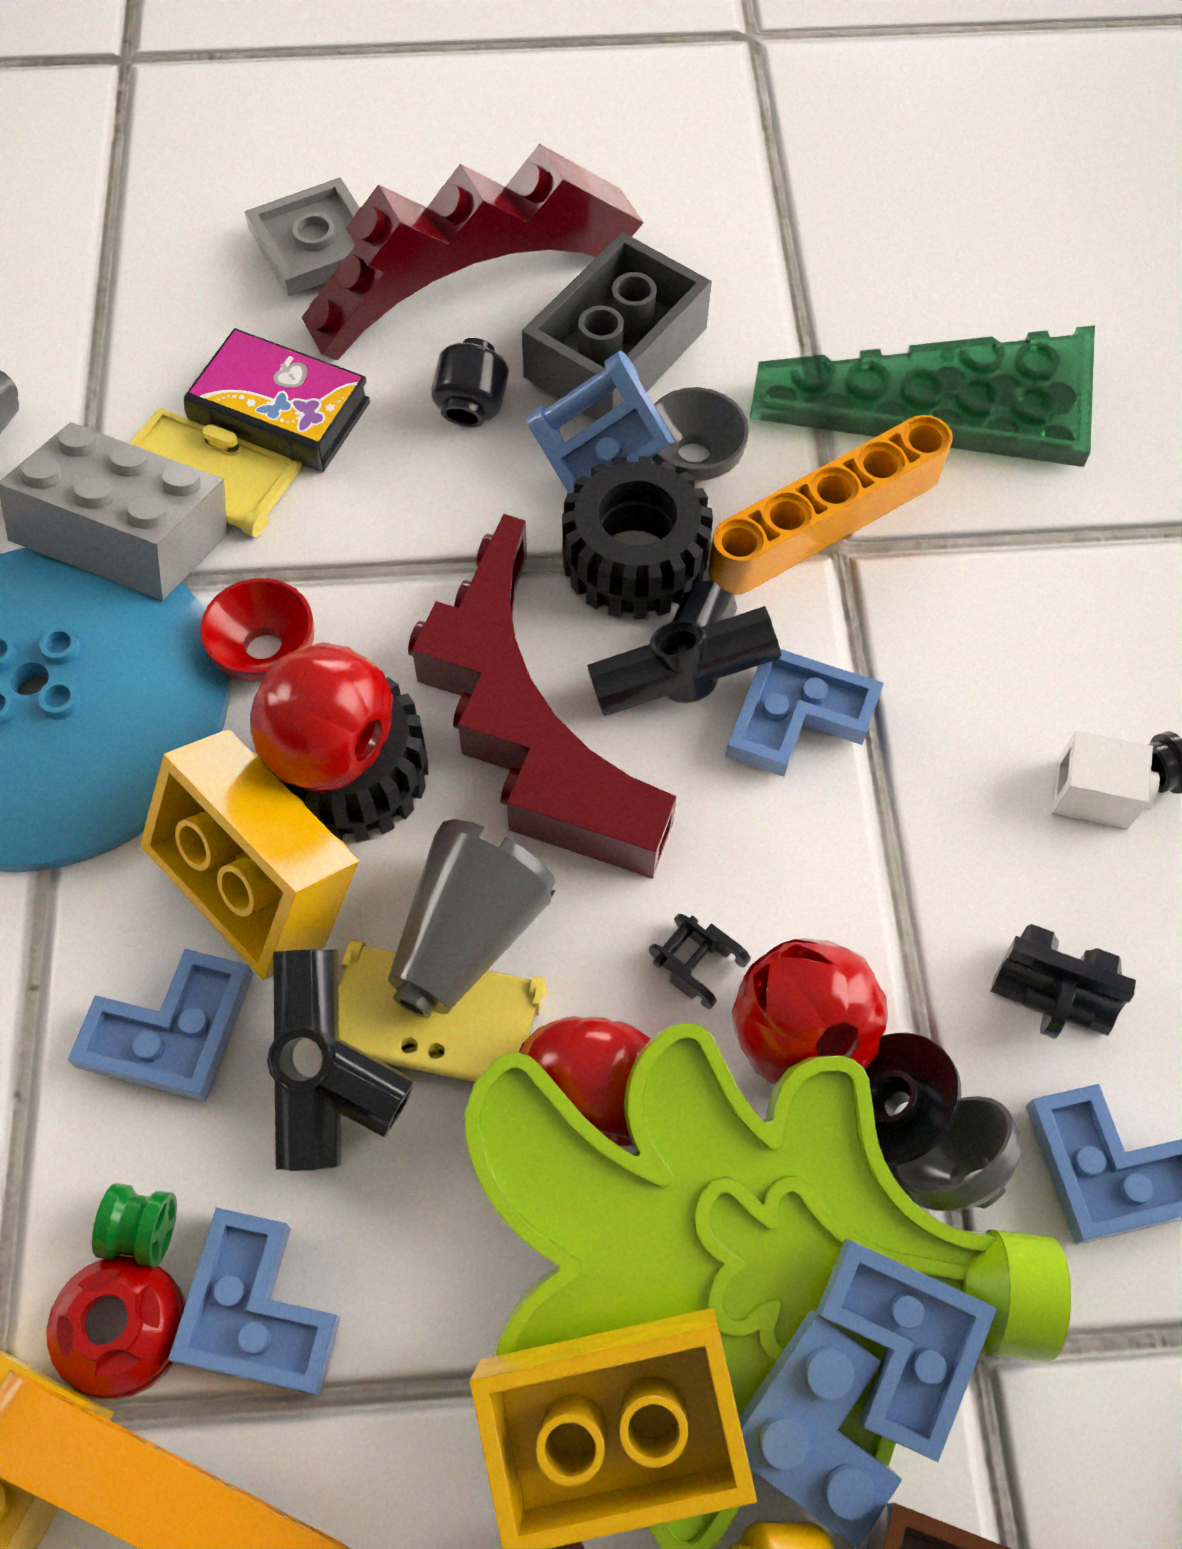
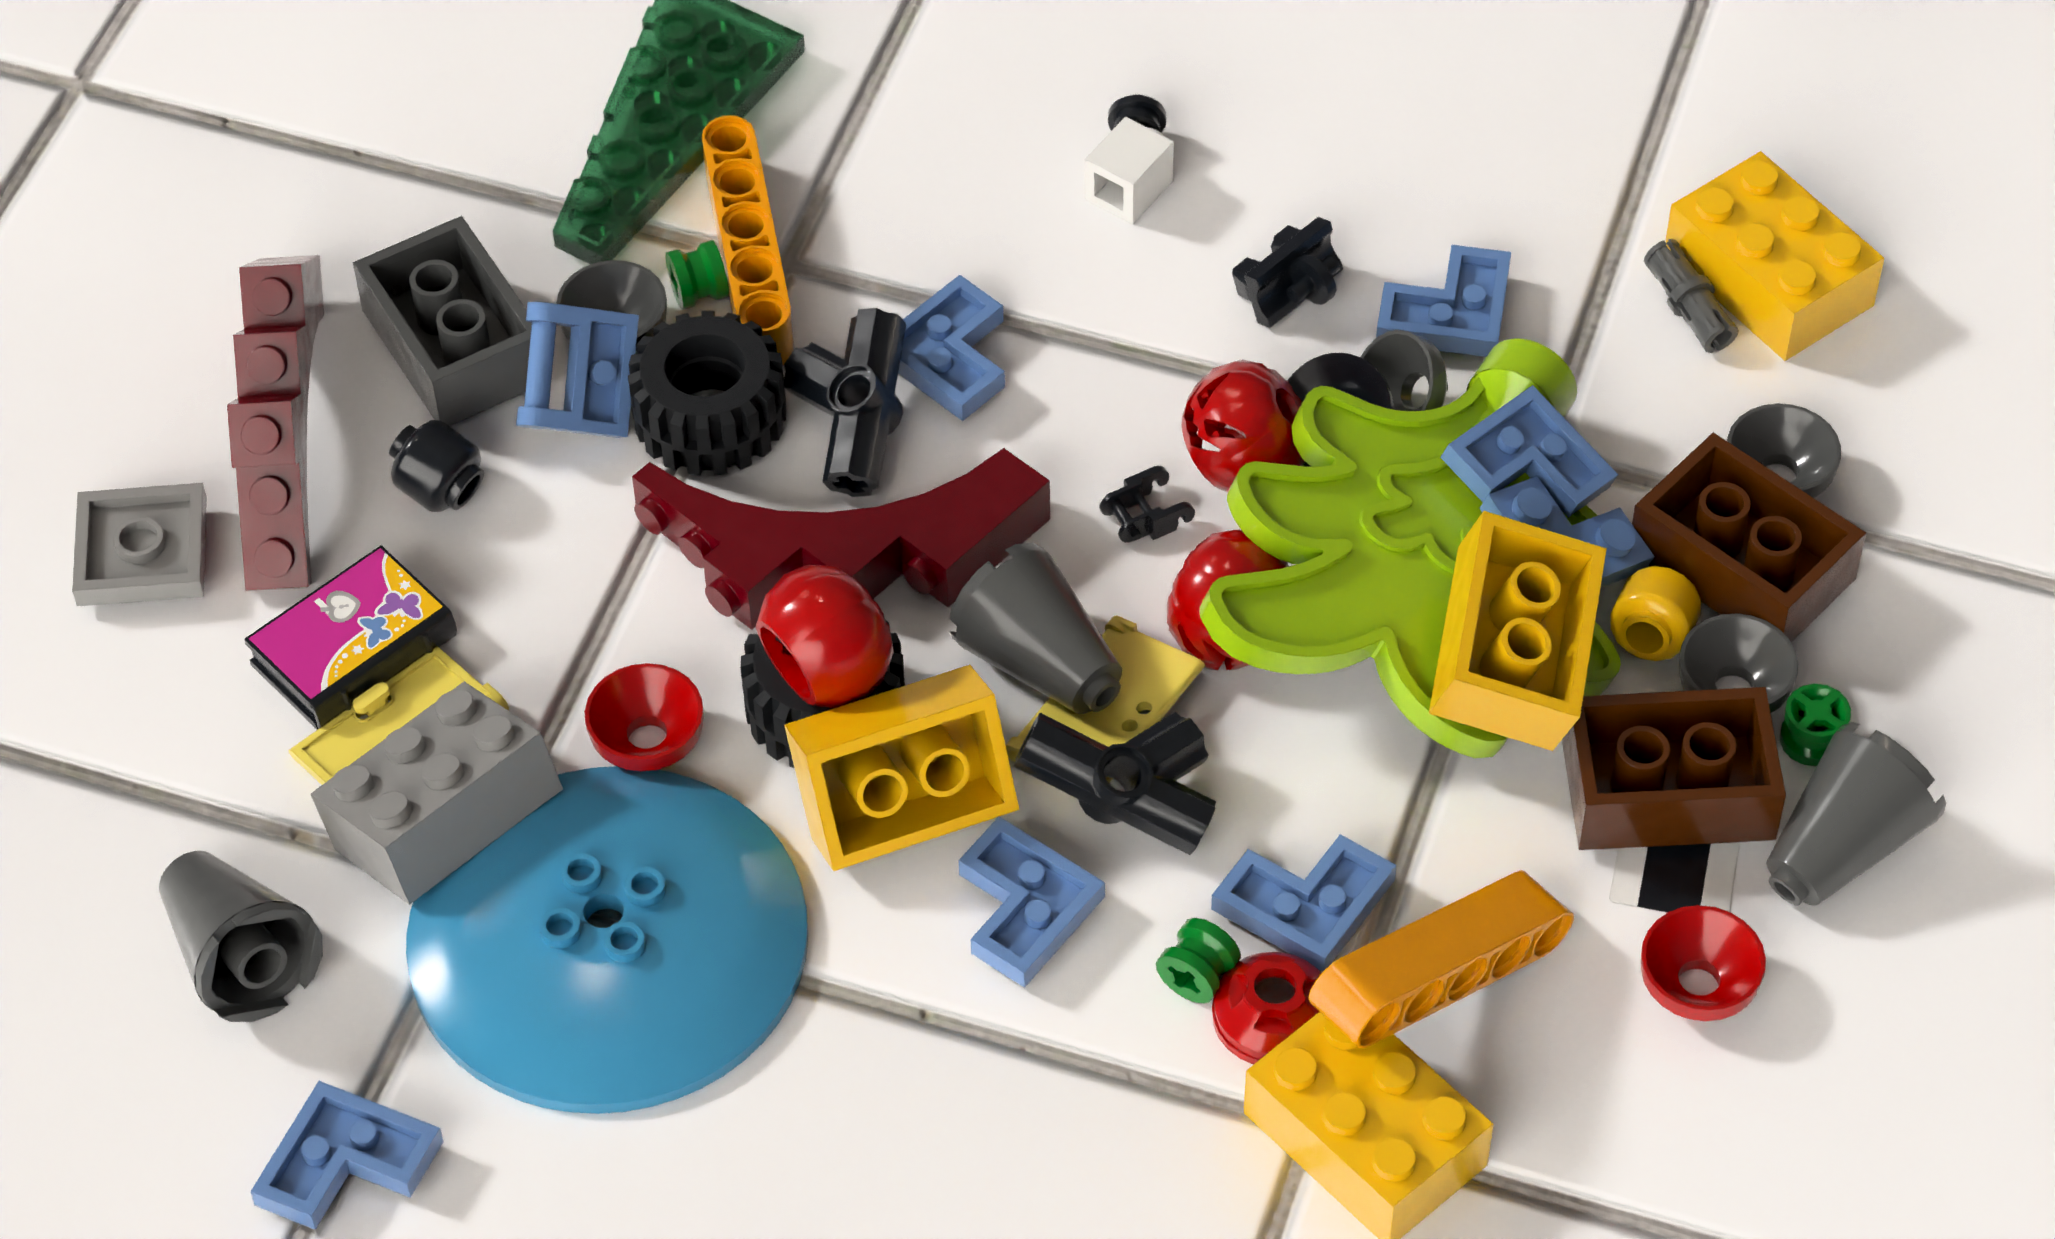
camera: 65 degrees left, 10 degrees down
(766, 474) = (697, 274): none -> green wheel

